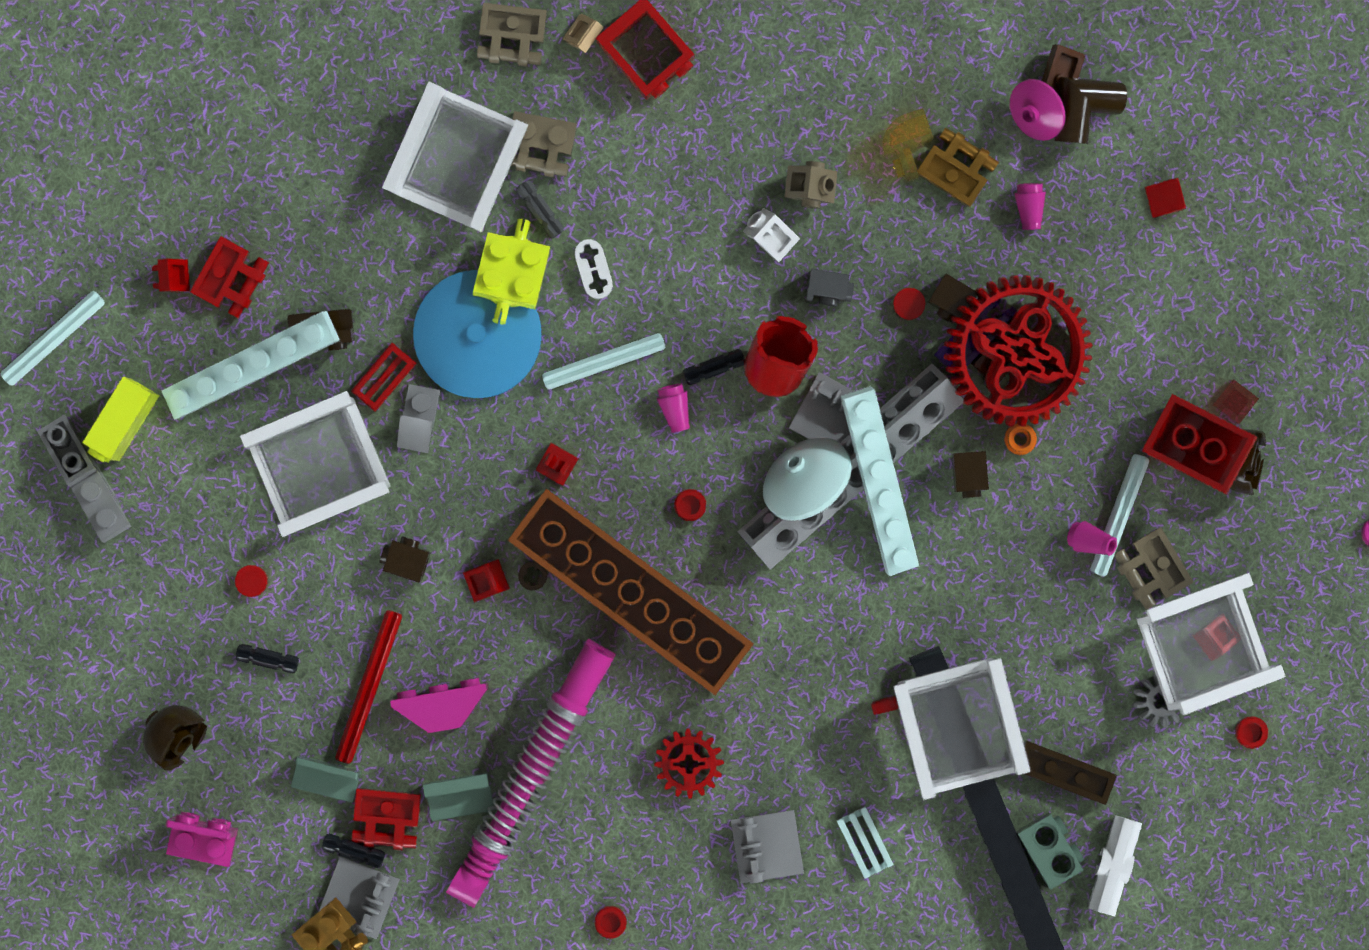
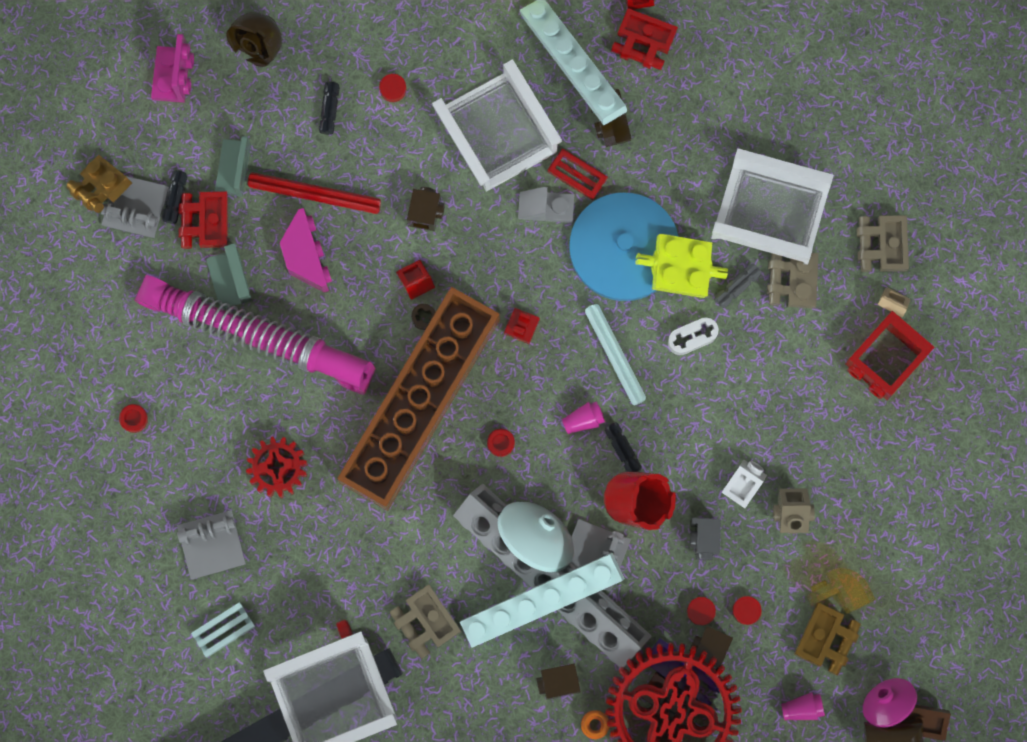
camera: 80 degrees right, 10 degrees down
(879, 605) = (432, 616): none -> dark tan plate
(914, 252) = (746, 610): none -> red tile

